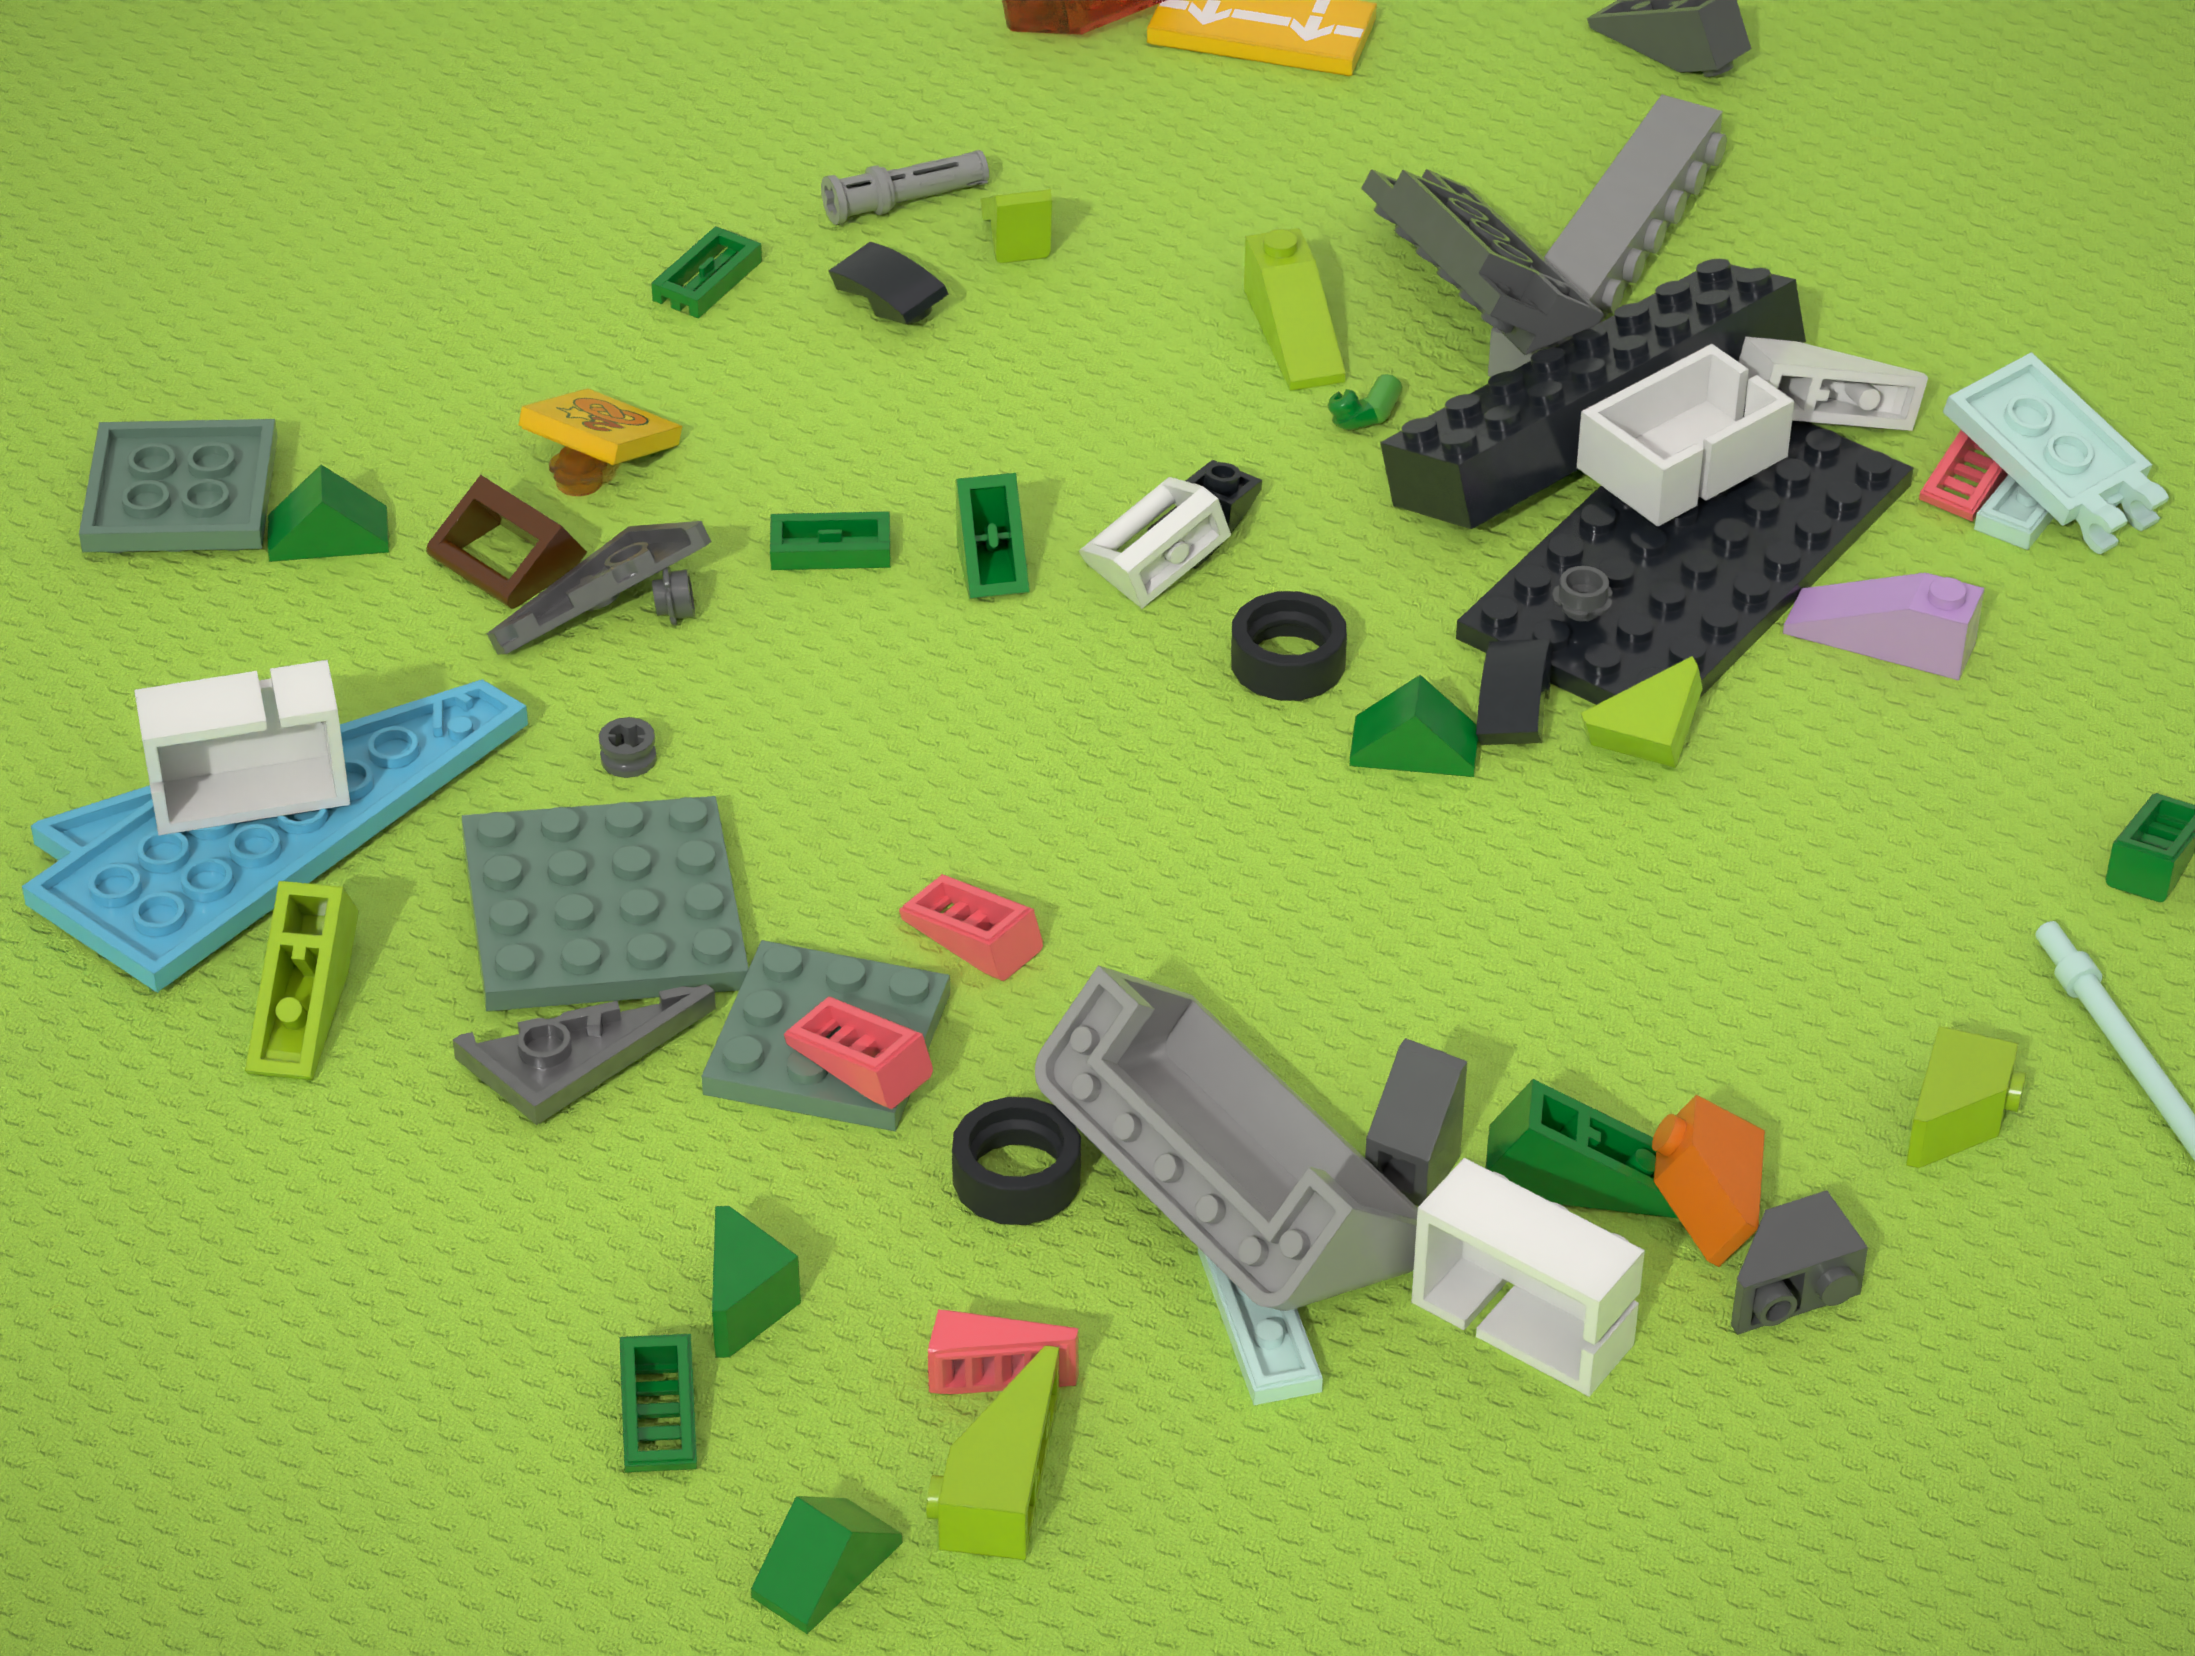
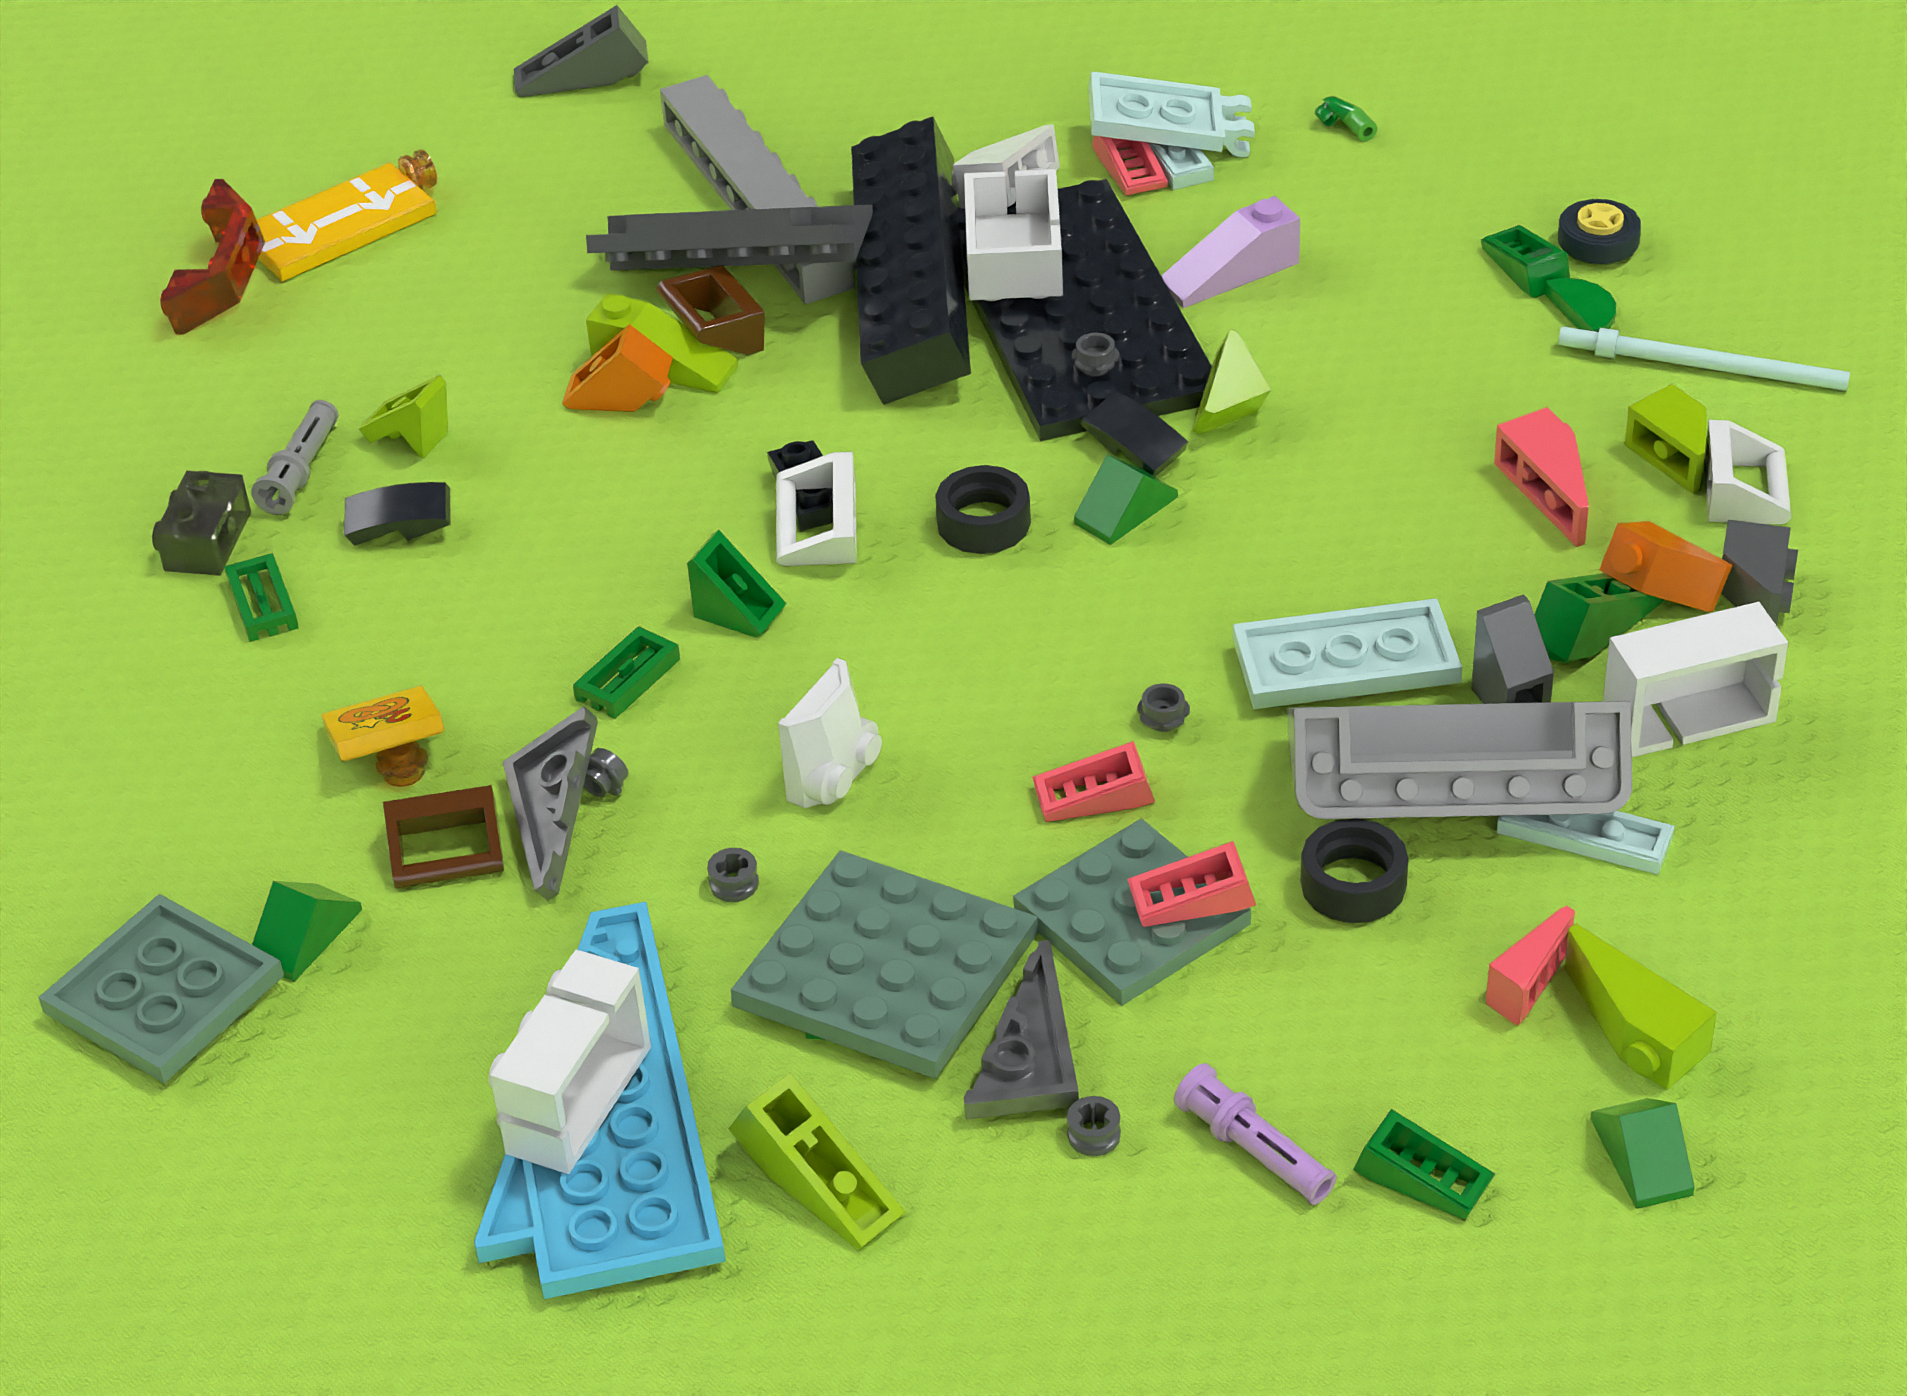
camera: 50 degrees left, 0 degrees up
(501, 1140) = (1093, 1110): none -> dark grey bush
(599, 1237) = (1235, 1119): none -> lavender pin
(752, 1281) = (1346, 1059): green slope -> none
(754, 180) = (202, 523): none -> clear smoke brick
(829, 699) = (826, 741): none -> white slope
(1126, 914) = (1163, 707): none -> dark grey plate
(1222, 310) = (620, 375): none -> orange slope
(1329, 999) = (1346, 653): none -> light aqua plate
(1371, 348) = (737, 315): none -> reddish brown tile
(1374, 409) = (787, 363): arm -> none
(1380, 25) = (419, 168): none -> clear orange bush
(1793, 1022) = (1545, 465): none -> coral slope
(1944, 1156) = (1732, 499): none -> white tile
(2130, 928) = (1582, 302): none -> green tile

